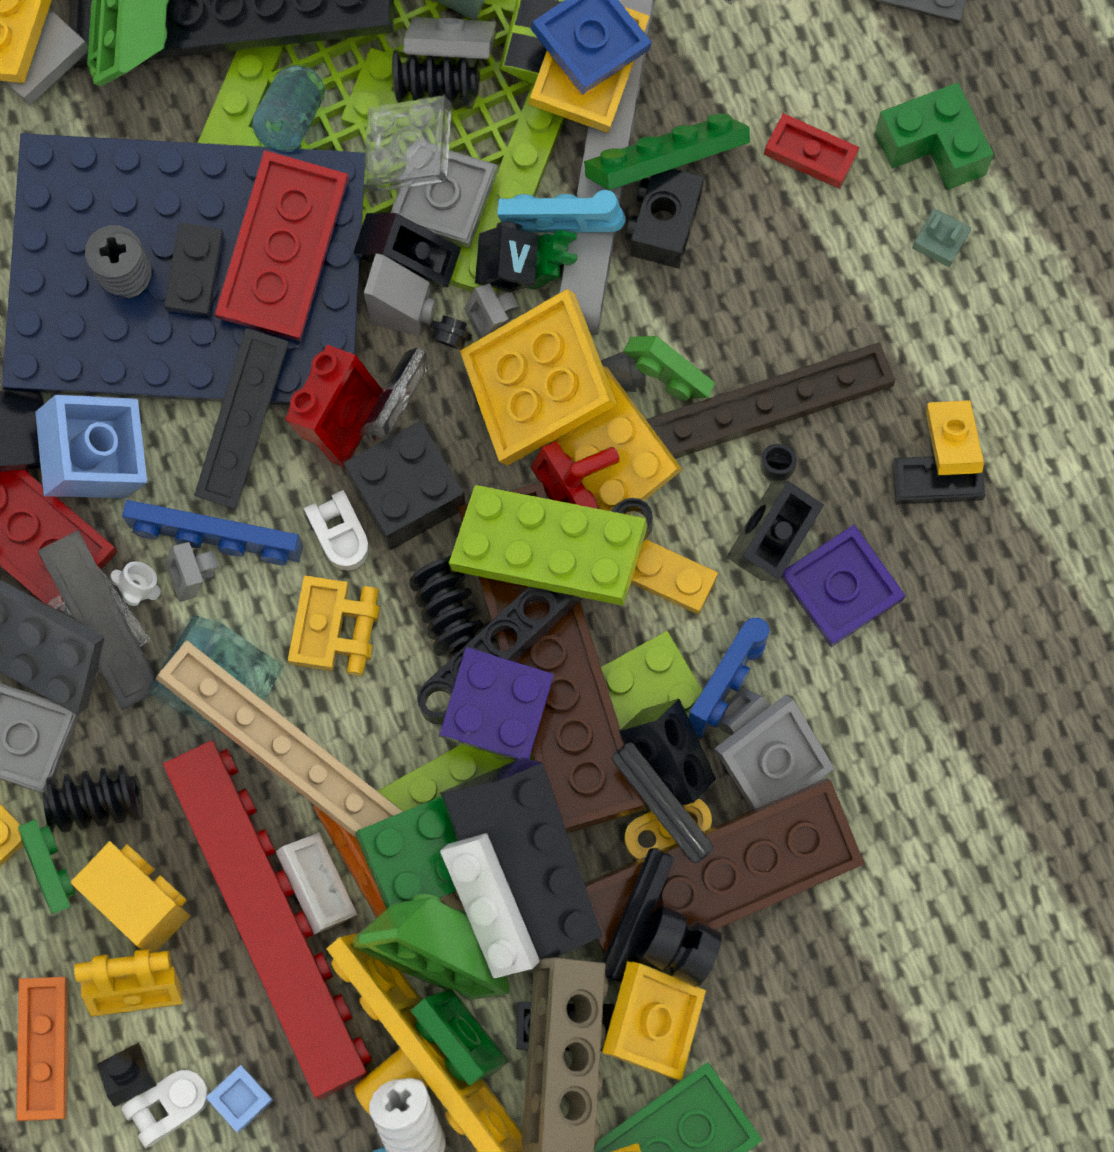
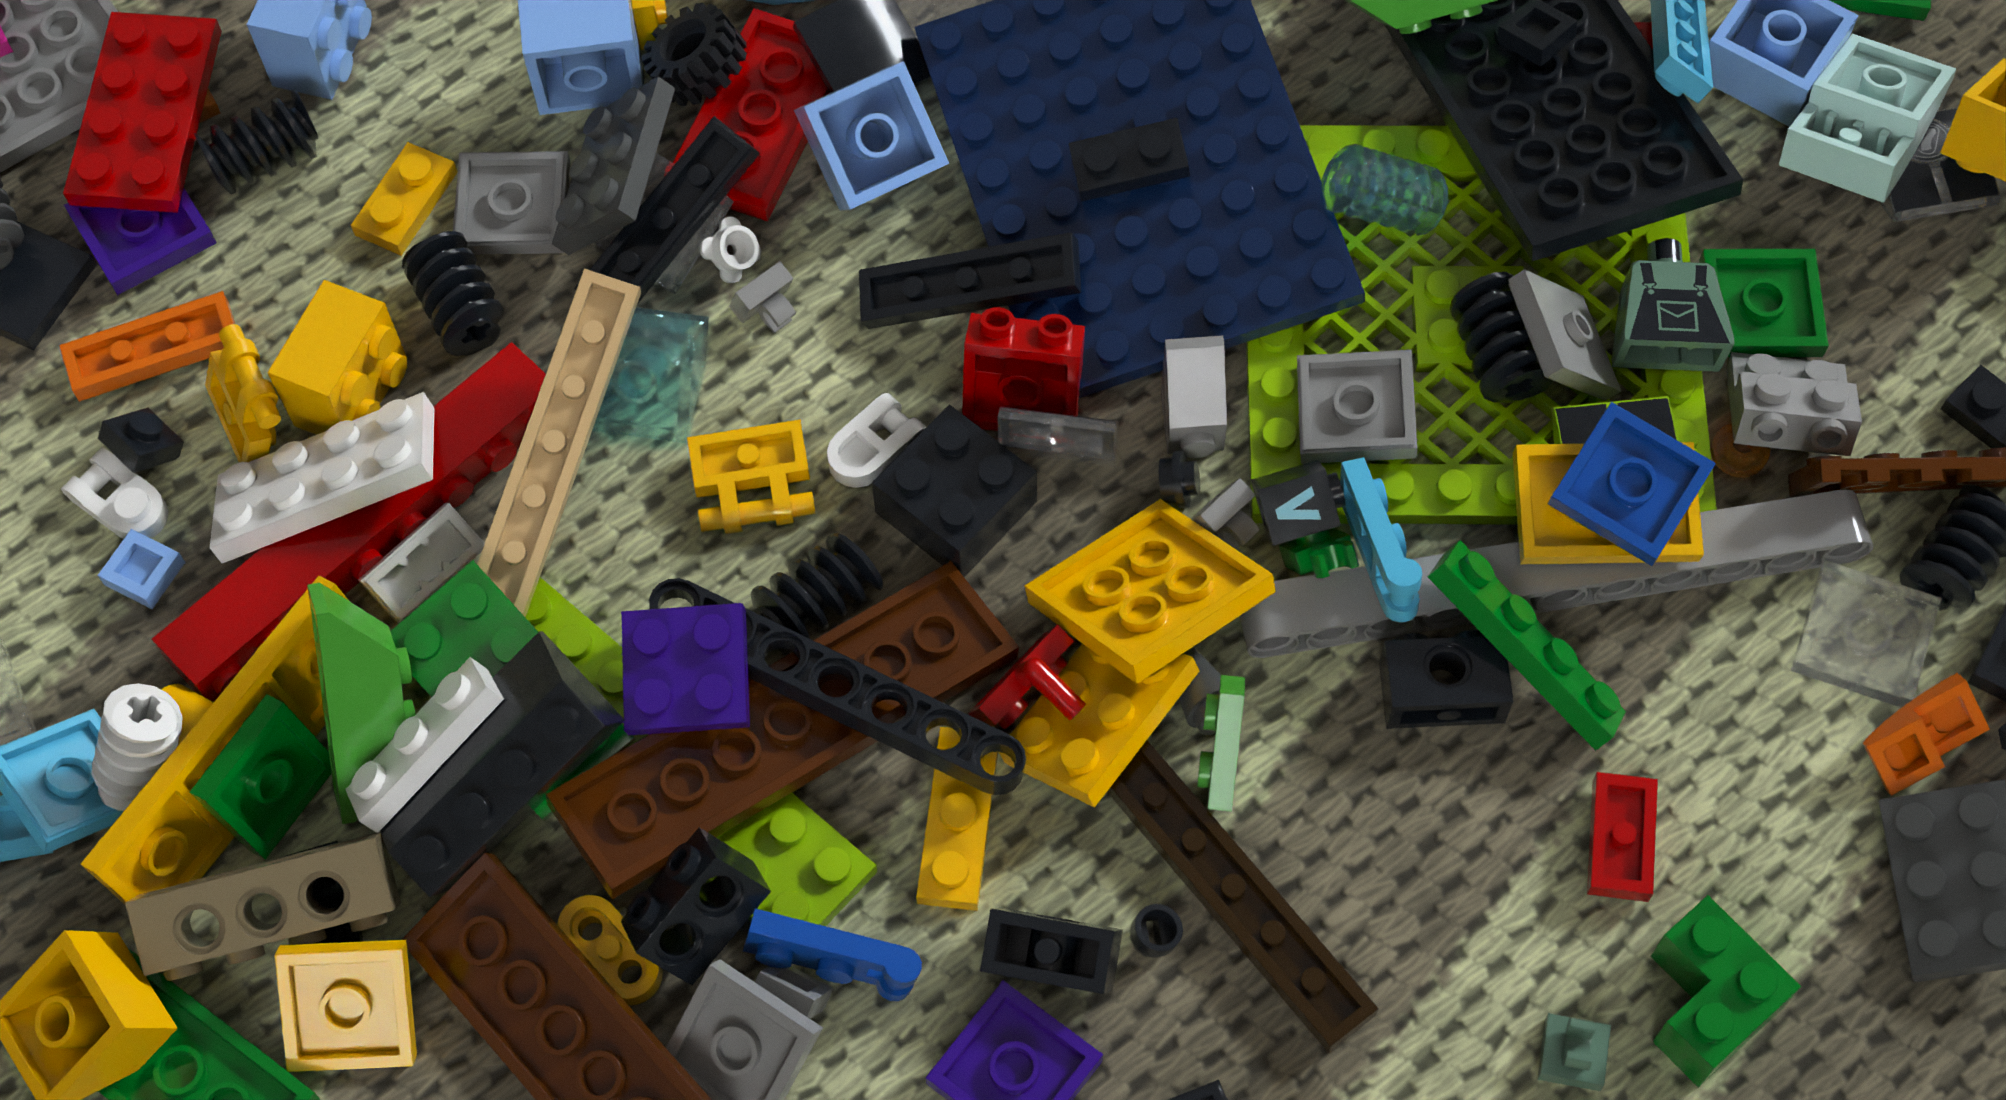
camera: 70 degrees right, 10 degrees down
(53, 884) = (351, 254): green plate -> none
(115, 244) = (1092, 65): dark grey piece -> none
(227, 934) = (323, 477): none -> white plate
(230, 536) = (820, 328): blue plate -> none
(282, 245) = (1196, 238): red plate -> none
(407, 144) = (1399, 337): clear plate -> none
(409, 246) = (1258, 386): black slope -> none
(549, 545) = (921, 669): lime plate -> none
(637, 912) = (476, 933): black axle -> none
(662, 802) = (619, 910): black axle -> none
(682, 947) = (446, 975): black wheel -> none

